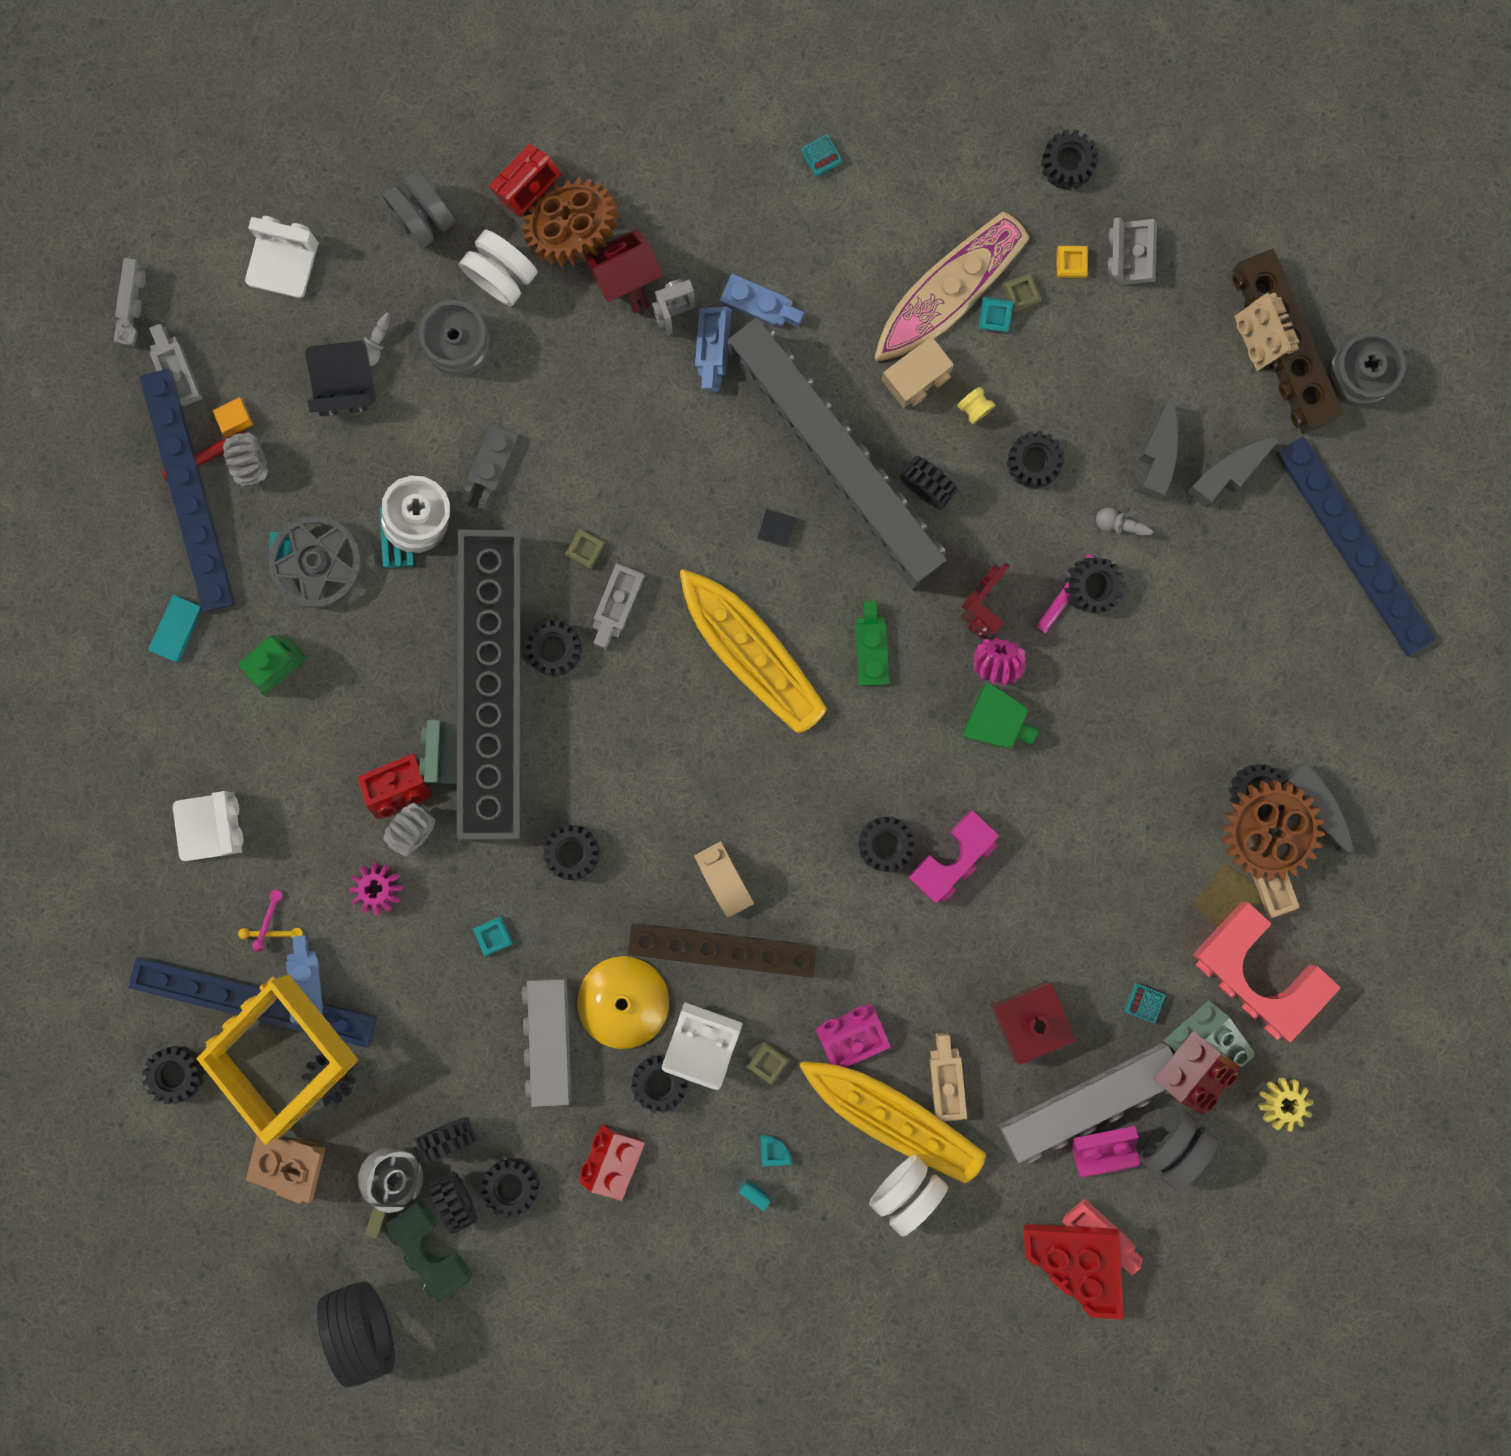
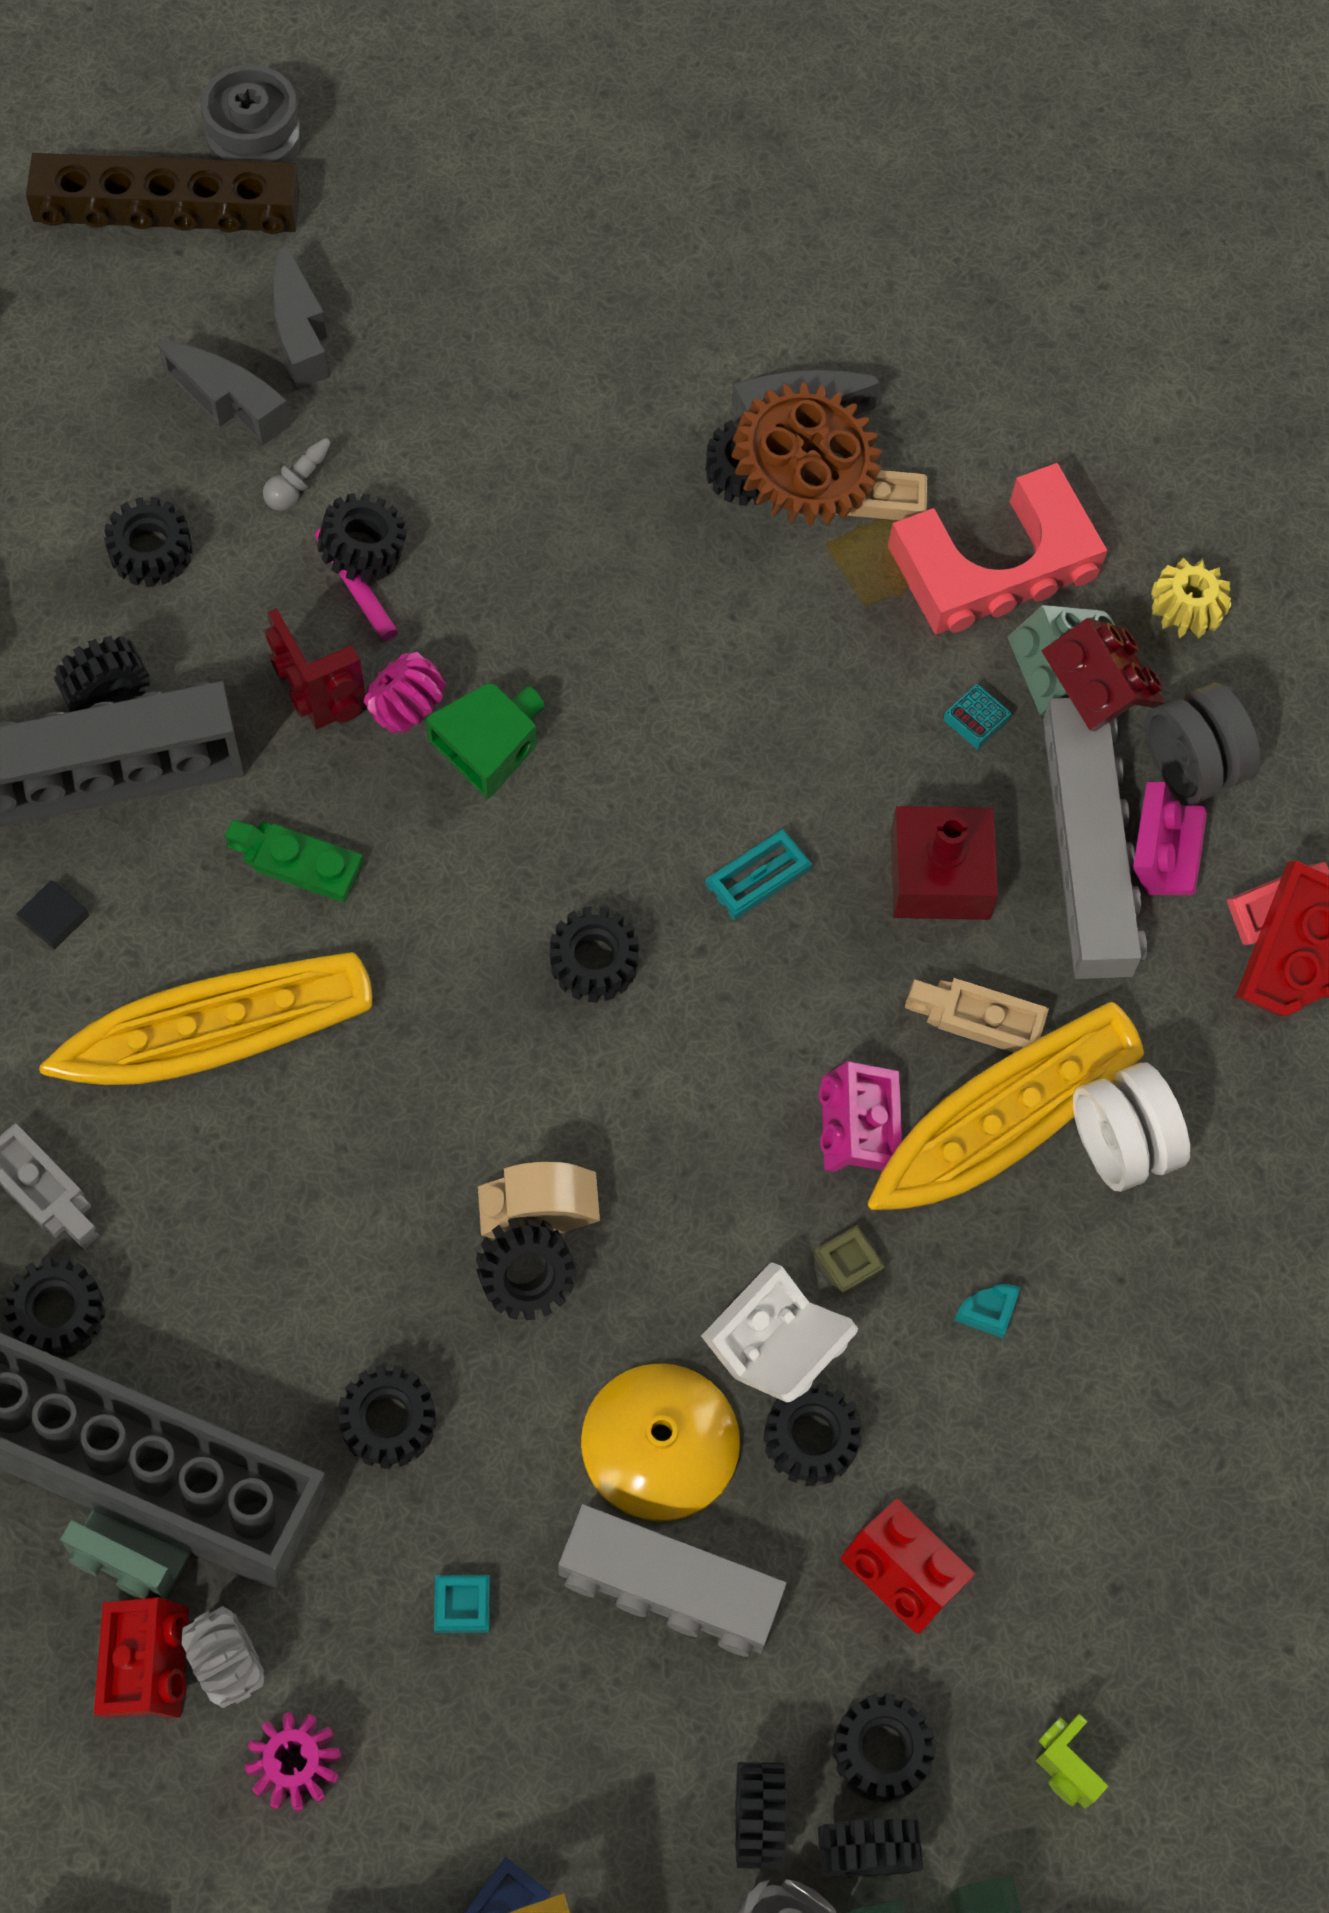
camera: 70 degrees left, 20 degrees down
(534, 1290) = (1070, 1775): none -> lime bracket
(688, 883) = (536, 1293): none -> black tyre
(722, 950) = (643, 1250): dark brown brick -> none
(754, 1194) = (1044, 1359): teal tile -> none
(959, 903) = (727, 897): none -> teal tile
(974, 840) = (644, 835): dark pink arch -> none
(976, 405) = (29, 581): light yellow wheel -> none
(1264, 332) = (135, 205): tan hinge -> none
(1355, 546) = (474, 230): dark blue plate -> none

